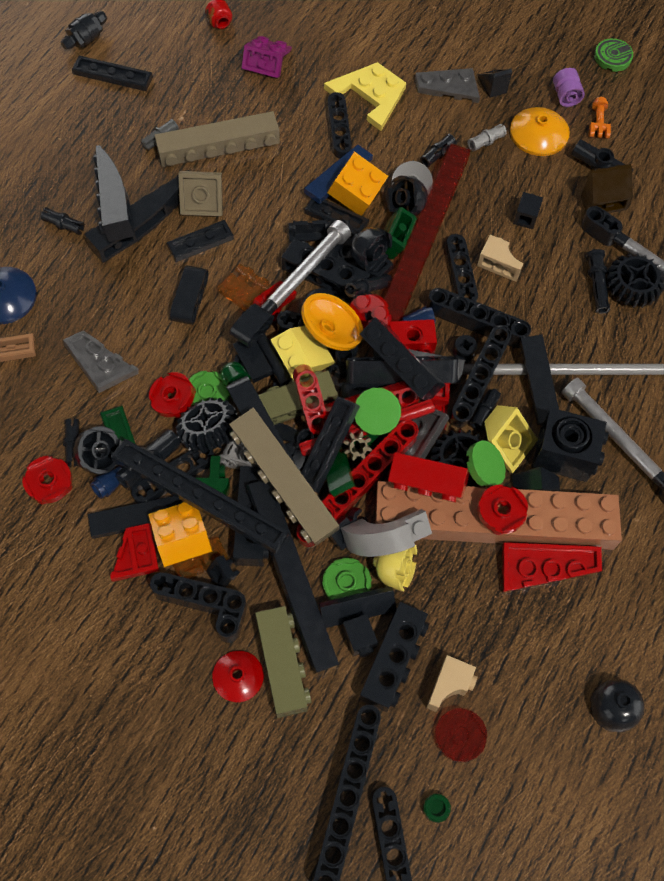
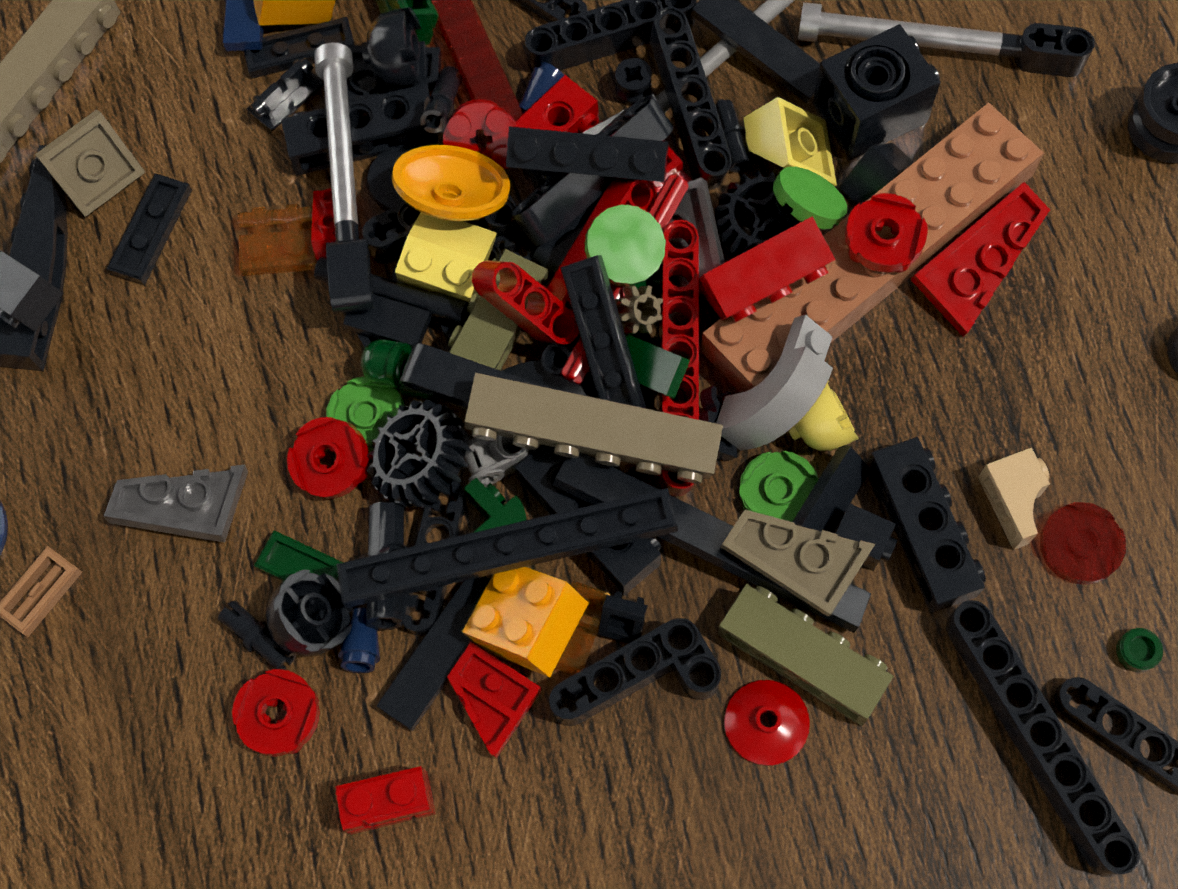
camera: 35 degrees left, 5 degrees up
(50, 554) = (384, 800): none -> red brick
(189, 295) = (212, 310): black beam -> none
(318, 617) = (799, 559): none -> dark tan wing

